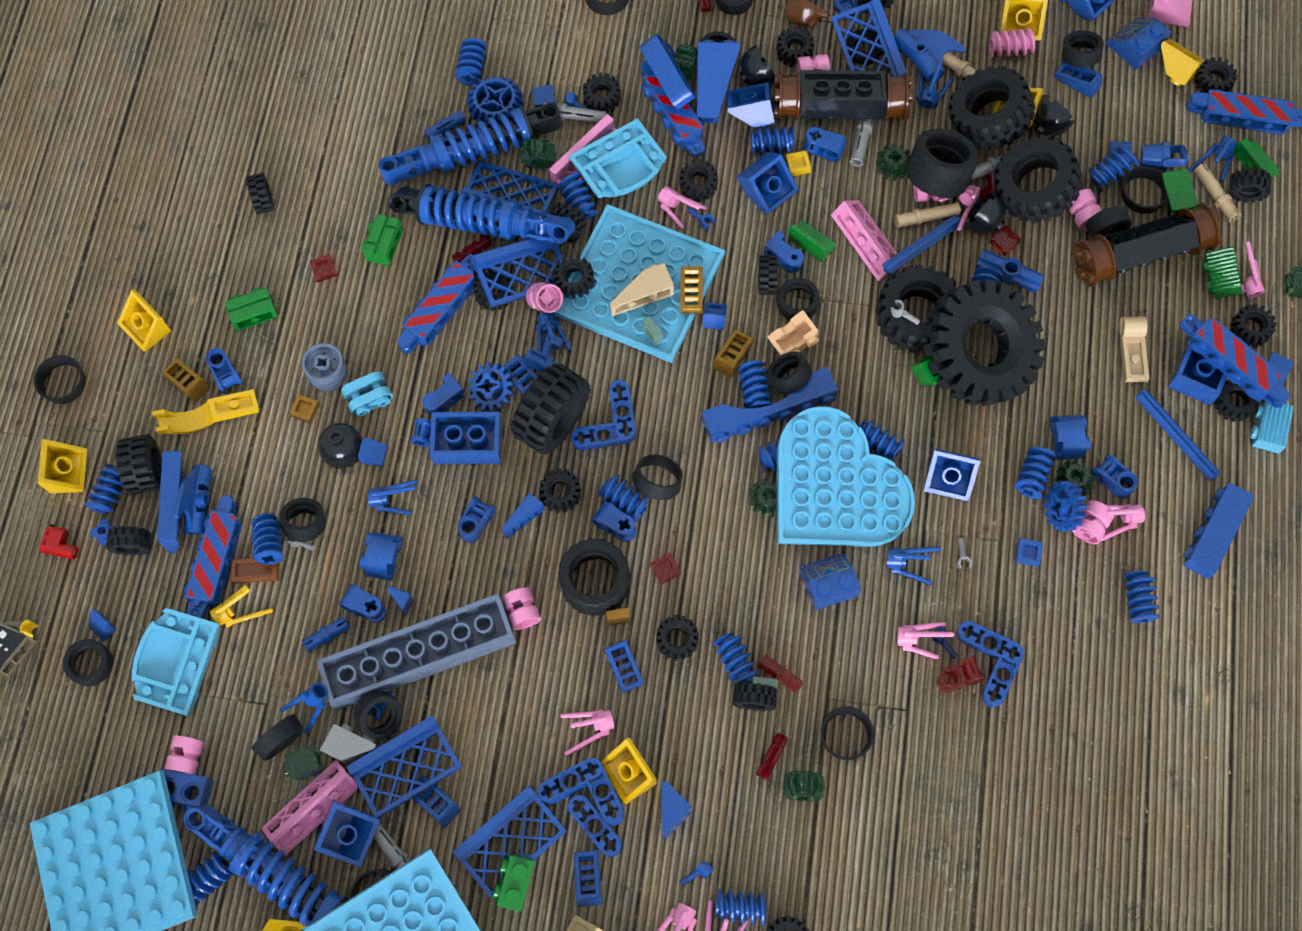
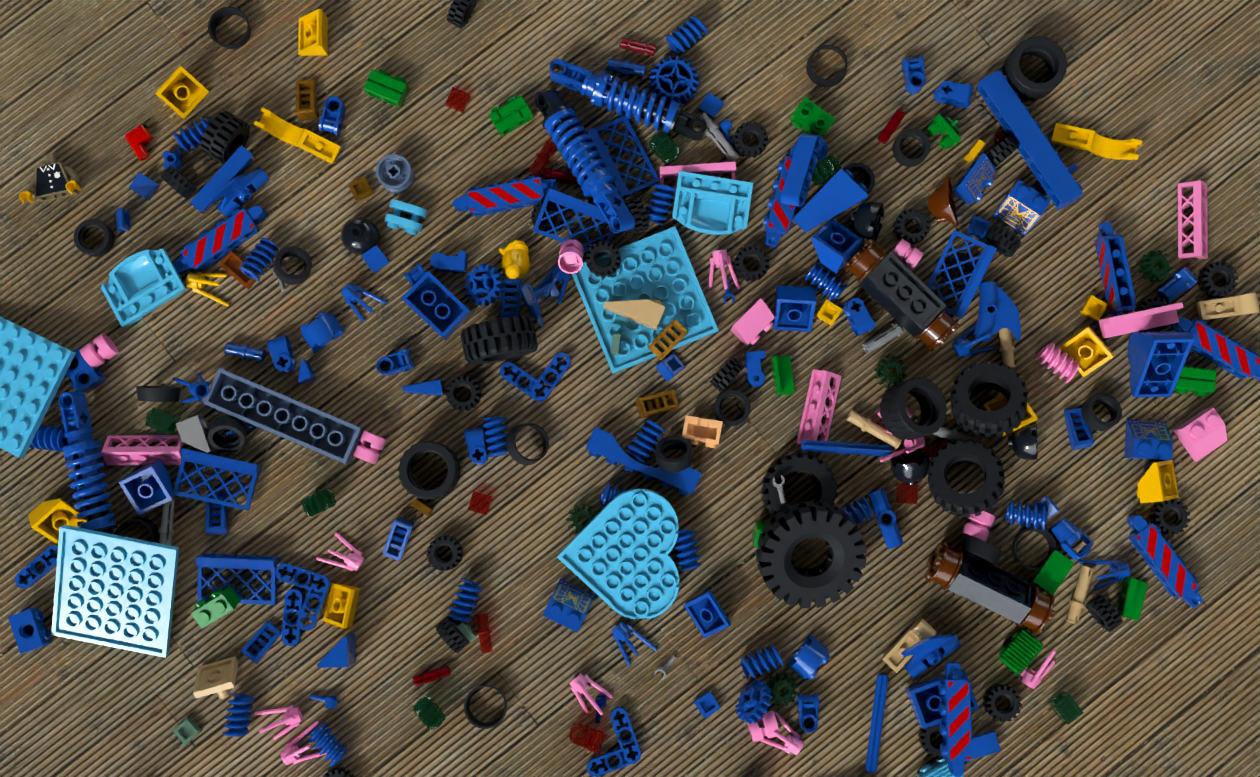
camera: 40 degrees right, 15 degrees up
(97, 577) = (144, 186): none -> blue slope
(438, 103) = (637, 46): none -> dark red axle
(442, 248) = (542, 158): none -> clear red axle
(497, 345) = (515, 260): none -> yellow hair
(521, 697) = (318, 502): none -> clear green gear
(632, 35) = (811, 118): none -> green brick
(747, 219) = (753, 322): none -> bright pink slope
(1157, 336) = (929, 652): none -> blue pin

